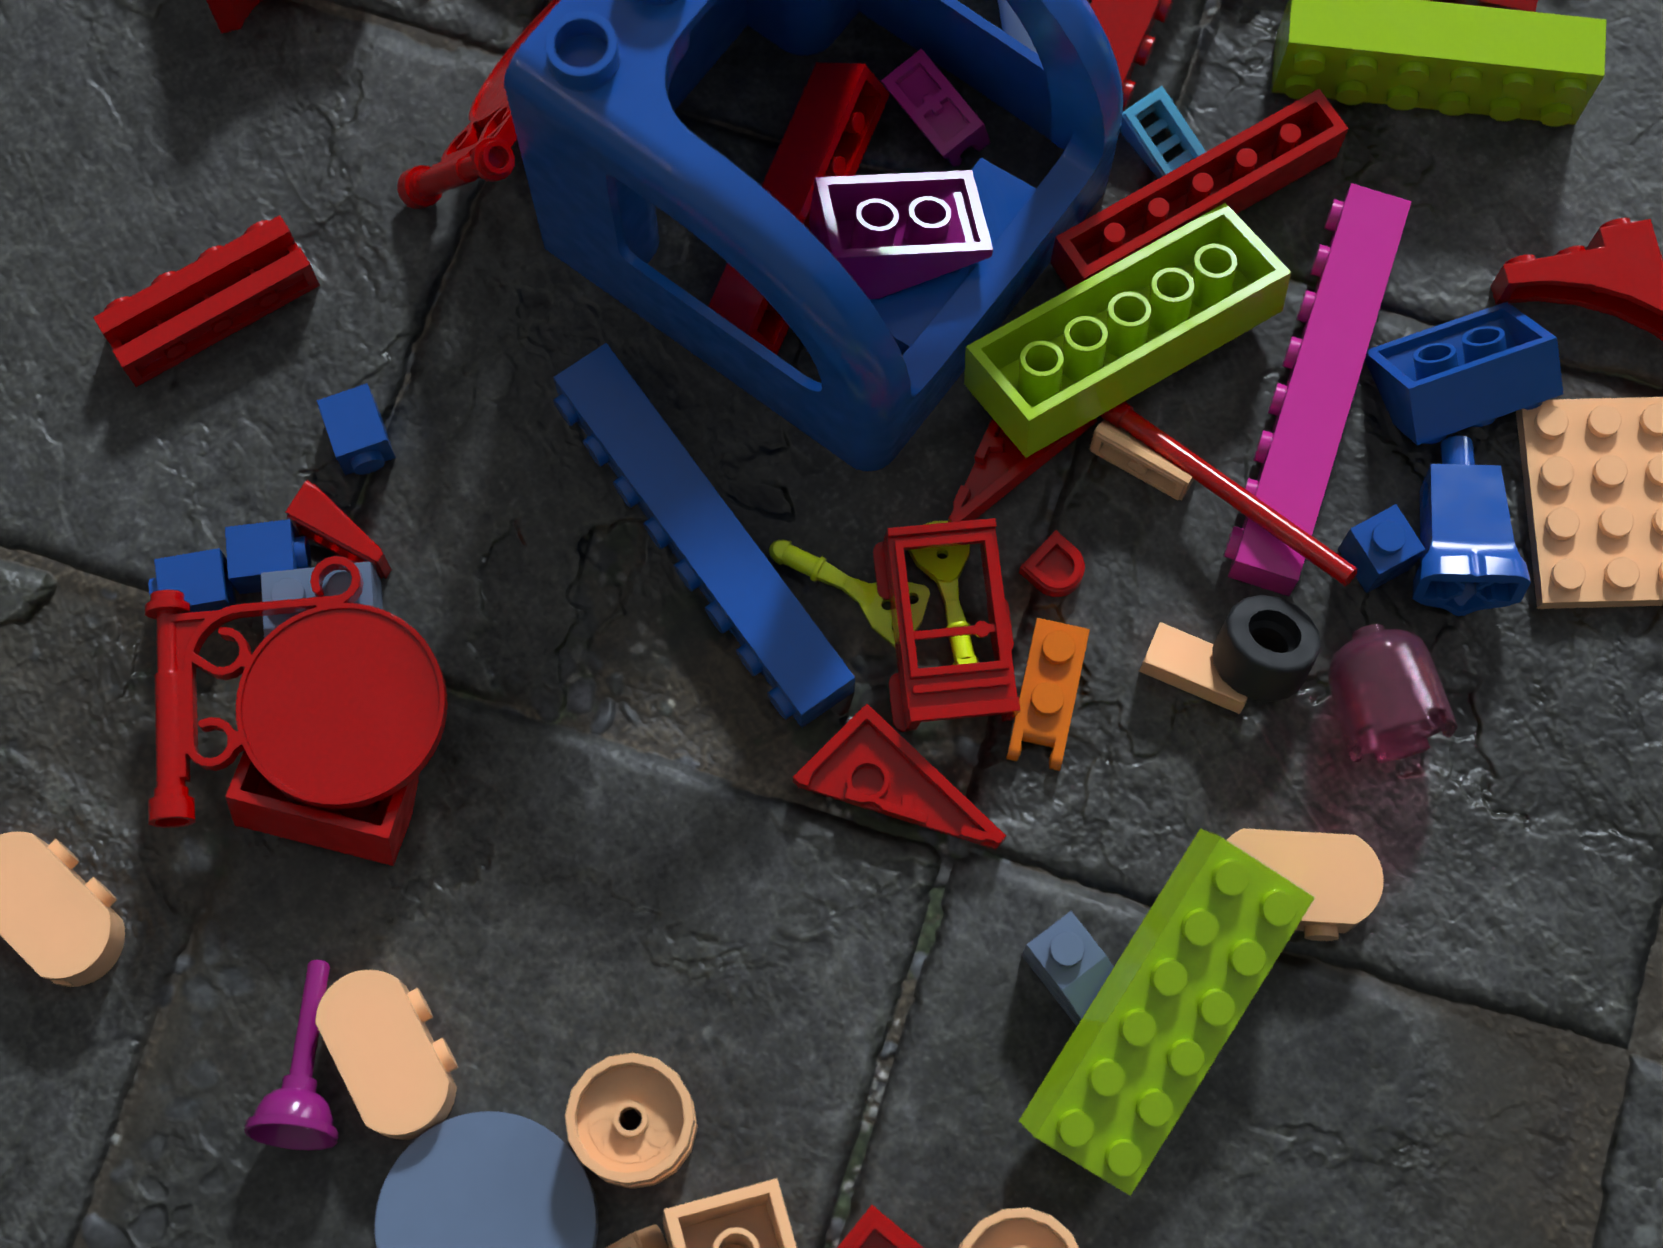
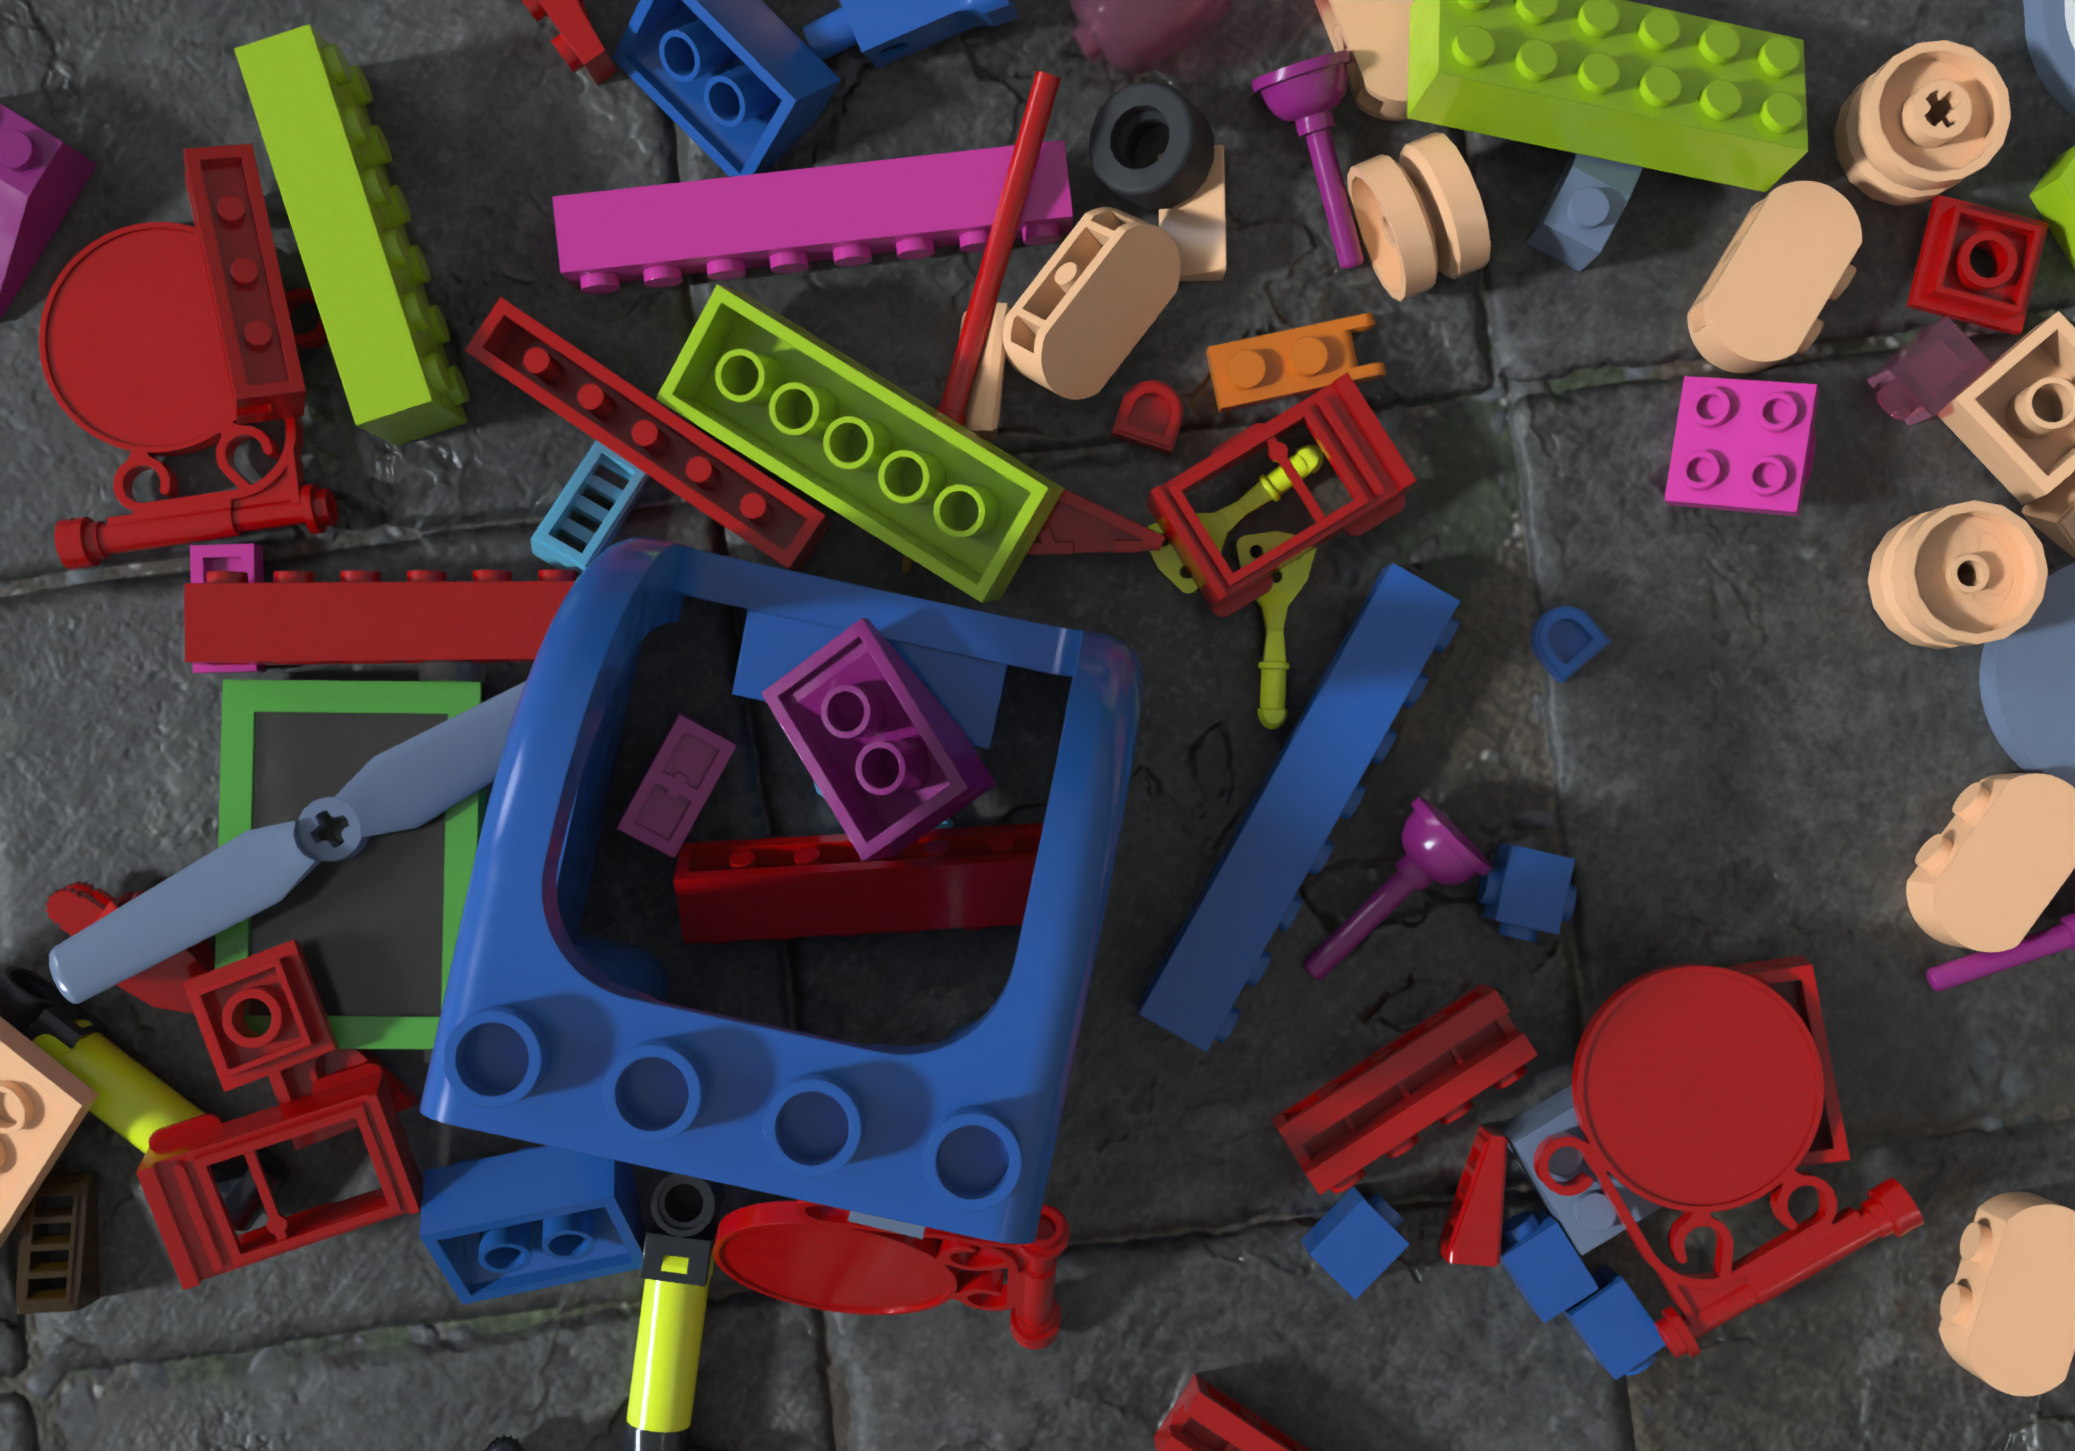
camera: 115 degrees left, 15 degrees up
(449, 516) = (1405, 1088): none -> red brick
(552, 674) = (1527, 891): none -> blue brick
(618, 618) = (1433, 853): none -> magenta piece
(730, 802) = (1566, 641): none -> blue tile
(809, 1184) = (1927, 372): none -> clear pink brick
(817, 1005) = (1743, 445): none -> dark pink plate
(883, 773) = (1465, 495): red wing -> none
(943, 1097) = (1776, 278): none -> light nougat brick
(1119, 817) = (1419, 216): none -> light nougat wheel
(1160, 546) = (1092, 302): none -> light nougat brick
(1255, 786) = (1307, 95): none -> magenta piece
(1381, 548) = (977, 72): blue brick -> none

